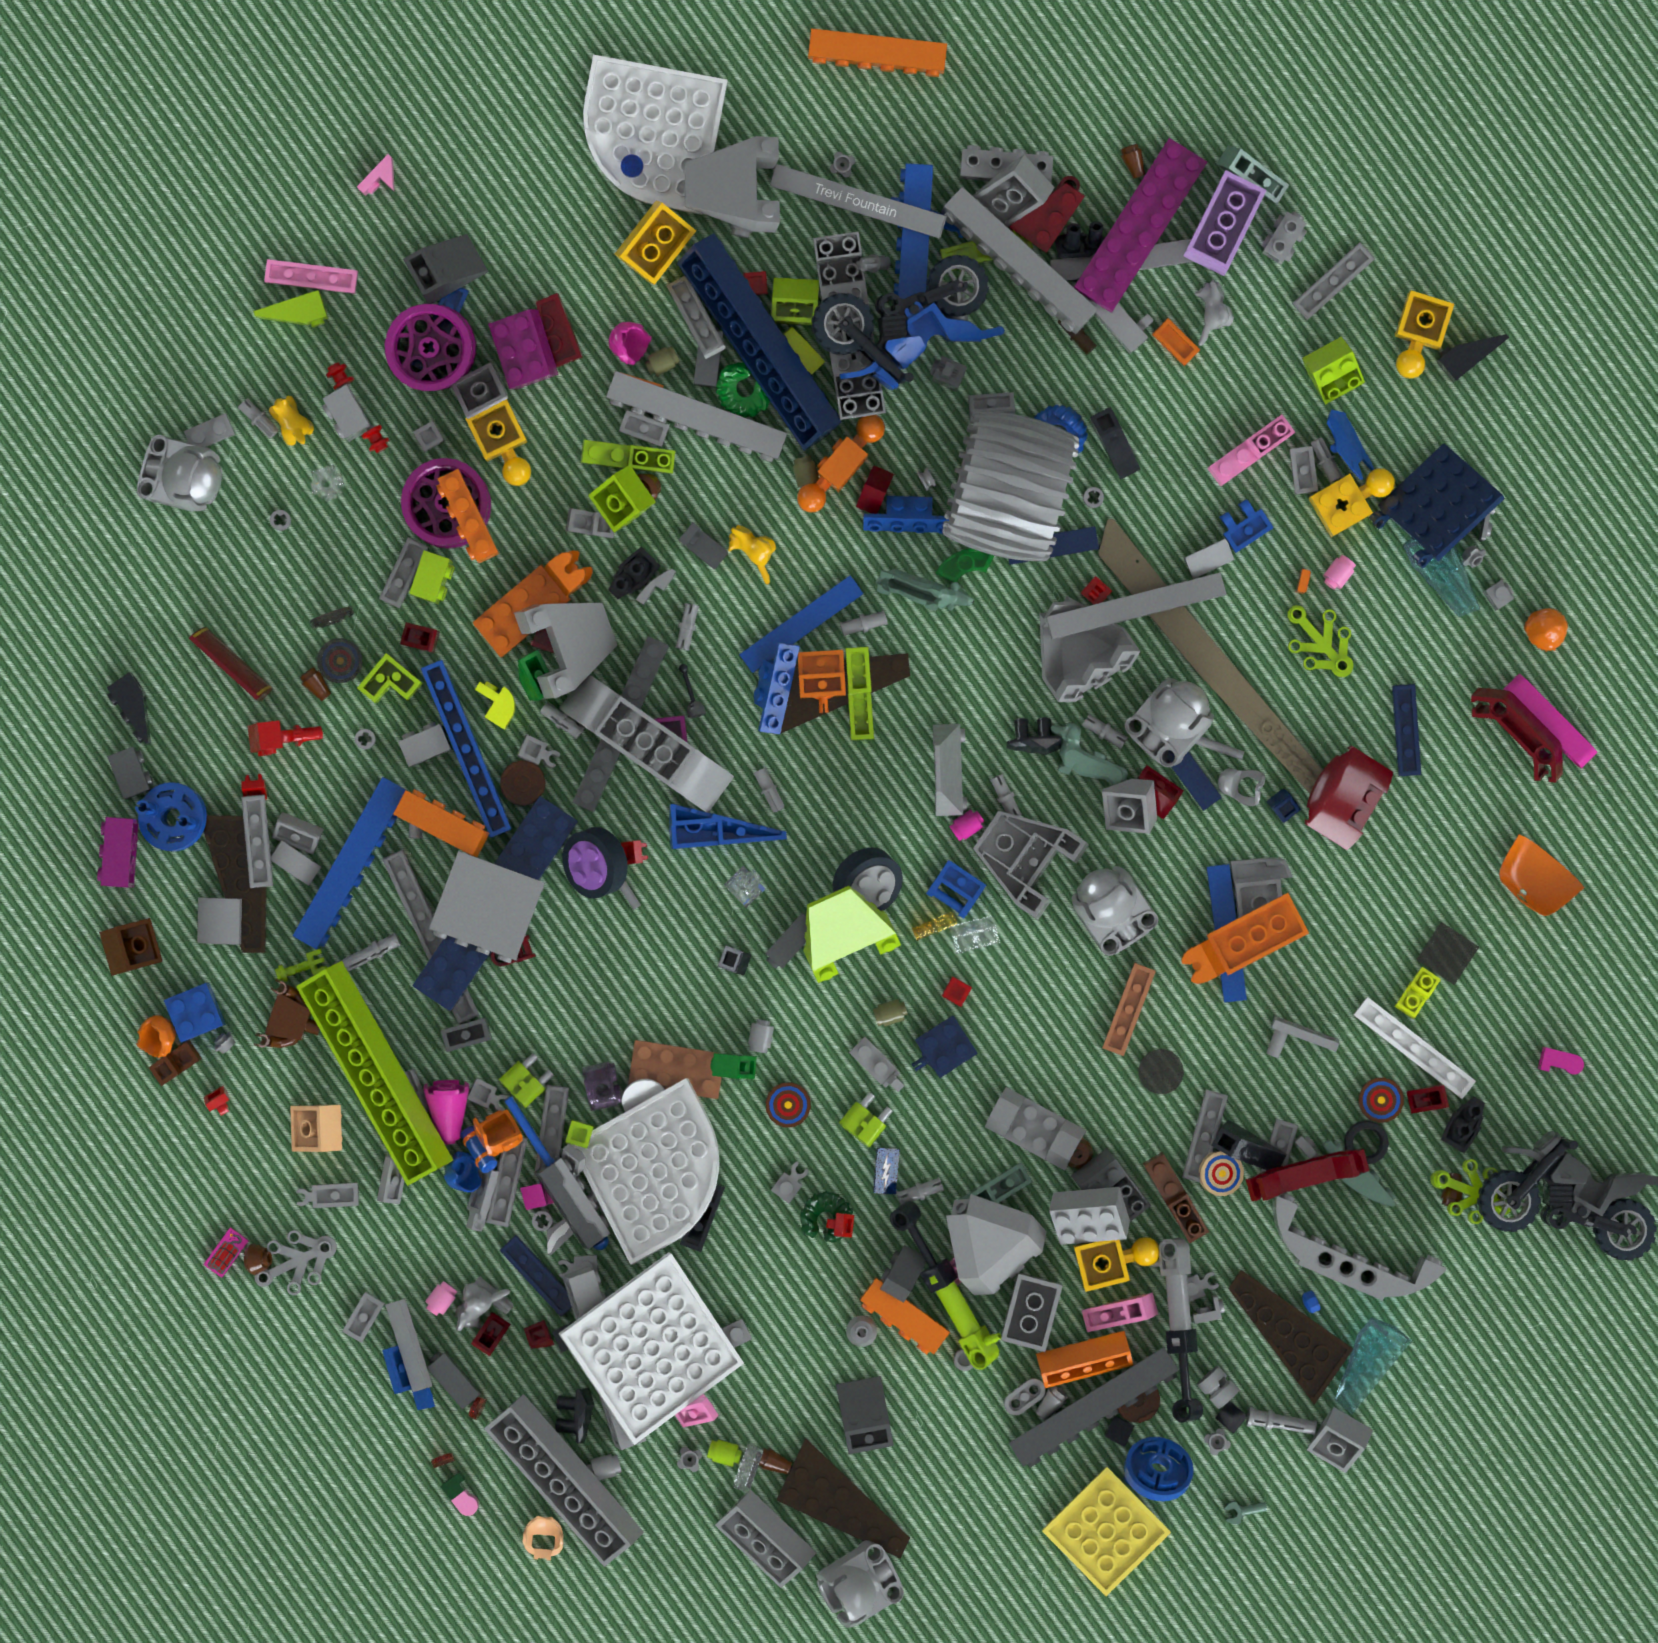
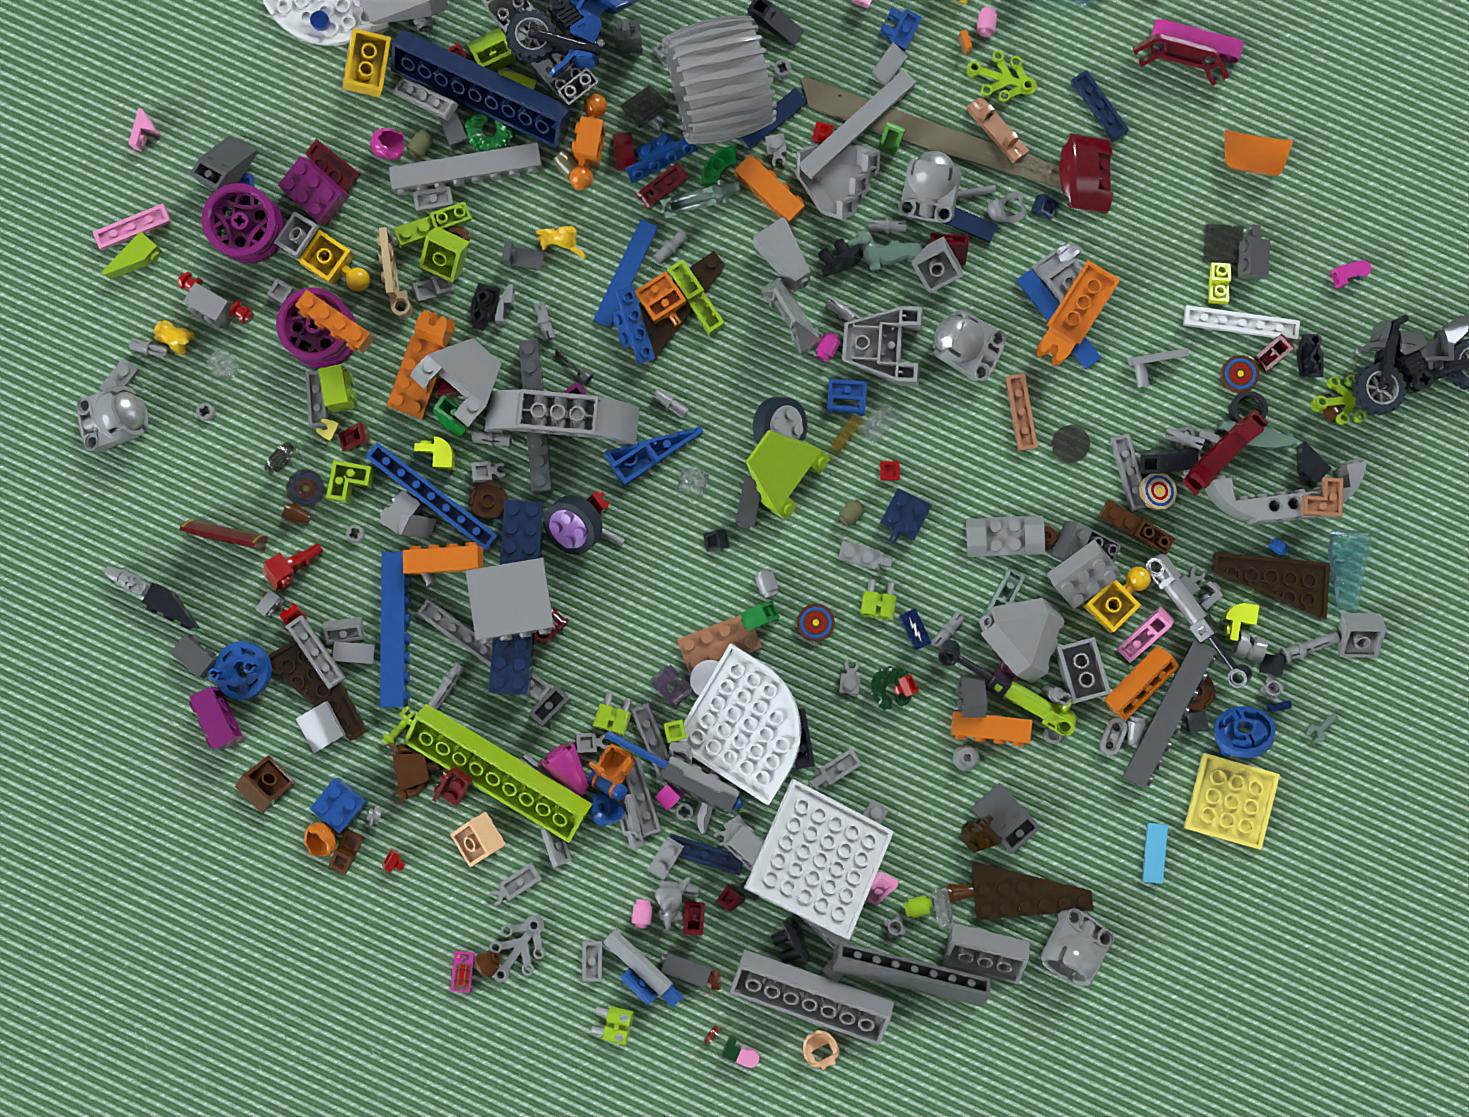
camera: 30 degrees left, 5 degrees down
(105, 655) = (127, 580): none -> light grey hinge
(237, 763) = (270, 603): none -> light grey piece
(321, 1061) = (452, 786): none -> dark red bracket
(352, 1396) = (617, 1026): none -> lime piece
(399, 617) = (332, 427): none -> light yellow tile
(432, 770) = (416, 526): none -> light grey slope
(496, 1256) = (665, 858): none -> light grey plate
(550, 490) = (390, 275): none -> tan hinge
(677, 1515) = (911, 974): none -> dark grey brick
(722, 1266) = (836, 769): none -> light grey hinge
(826, 1416) = (979, 835): none -> dark brown bracket
(894, 552) = (662, 185): none -> dark red plate
(923, 457) = (644, 106): none -> clear smoke tile
(976, 700) = (782, 252): none -> light grey slope
(989, 1321) = (1056, 695): none -> light grey pin
(997, 1537) = (1154, 853): none -> medium azure tile
(1003, 622) = (769, 189): none -> orange brick
(1037, 578) = (776, 147): none -> light grey plate
(1165, 640) = (891, 138): none -> bright green slope
(1212, 1463) = (1279, 706): none -> clear blue tile
(1227, 1346) = (1237, 615): none -> neon yellow brick
(1279, 1135) = (1184, 438): none -> light grey pin
(1281, 696) = (997, 130): none -> nougat hinge
(1382, 1288) = (1329, 503): none -> nougat tile
(1394, 1238) = (1310, 465): none -> black slope
(1469, 984) = (1253, 255): none -> dark grey hinge

